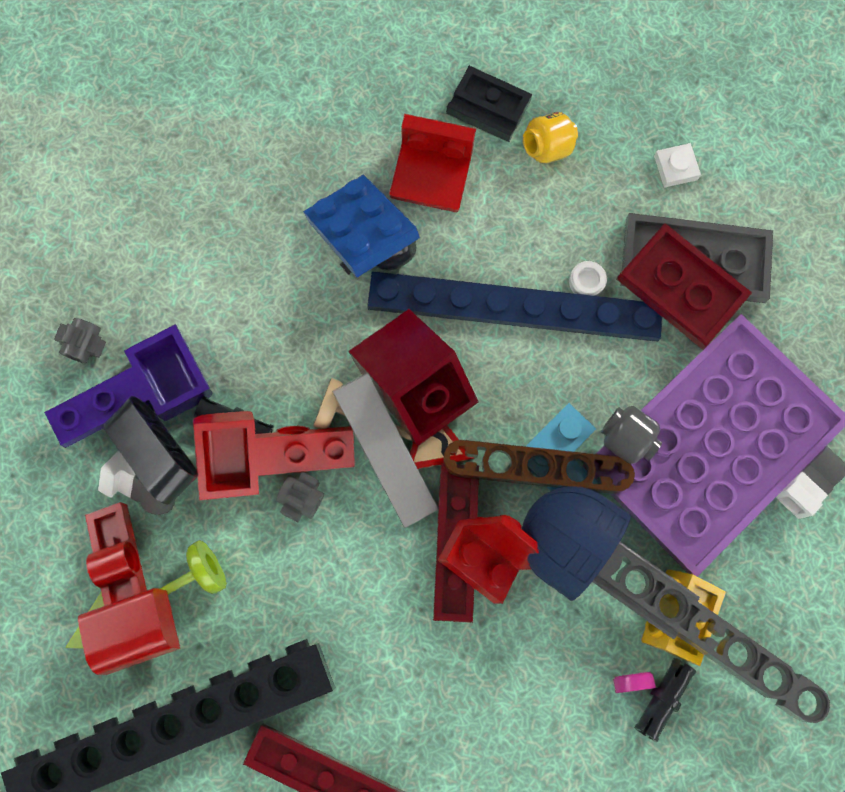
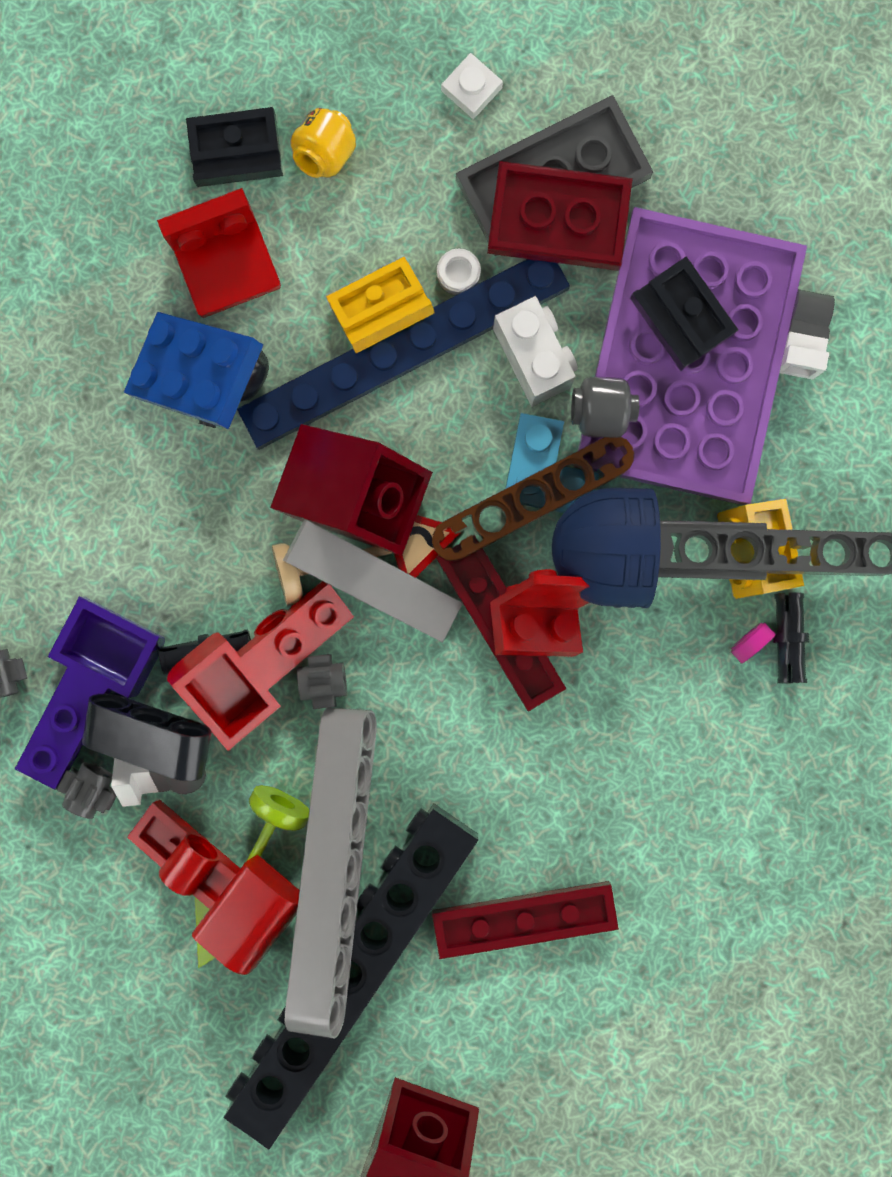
camera: 25 degrees left, 10 degrees up
(81, 462) = (87, 790): none -> dark grey gear
(206, 643) = (331, 873): none -> light grey beam
(518, 266) = (380, 304): none -> yellow plate
(606, 366) = (534, 351): none -> white brick
(731, 408) = (683, 313): none -> black plate

